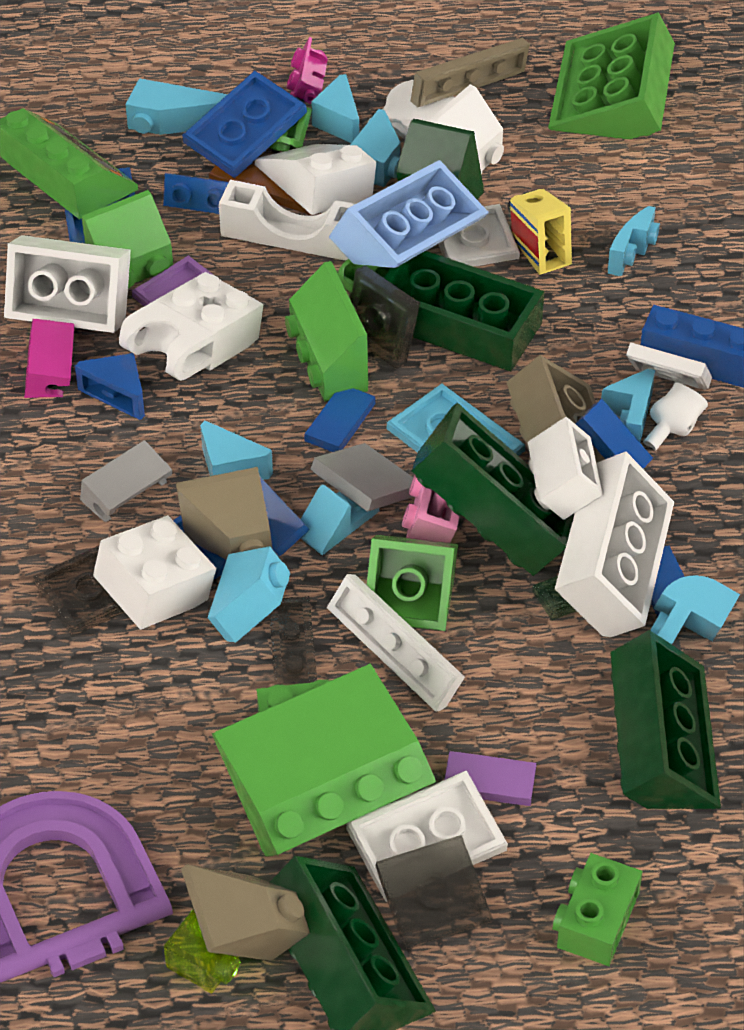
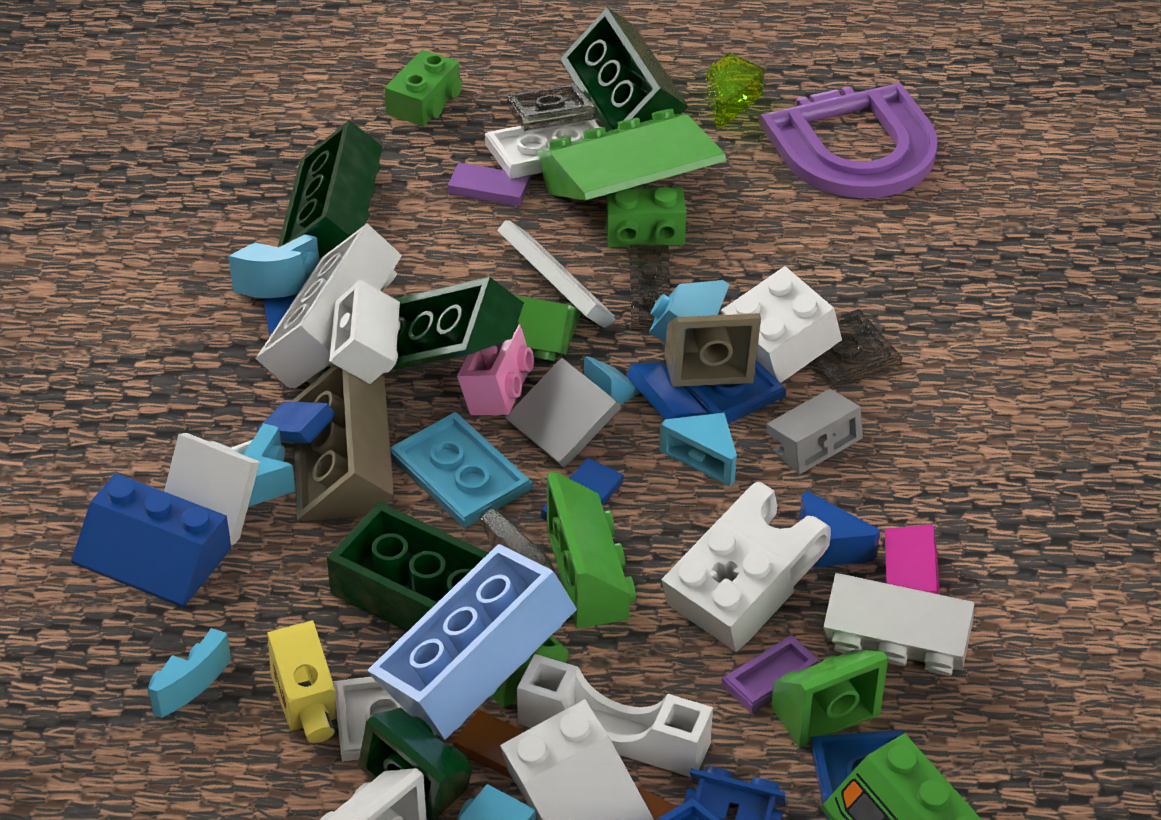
camera: 175 degrees left, 5 degrees down
(244, 913) = (701, 68): dark tan slope -> none

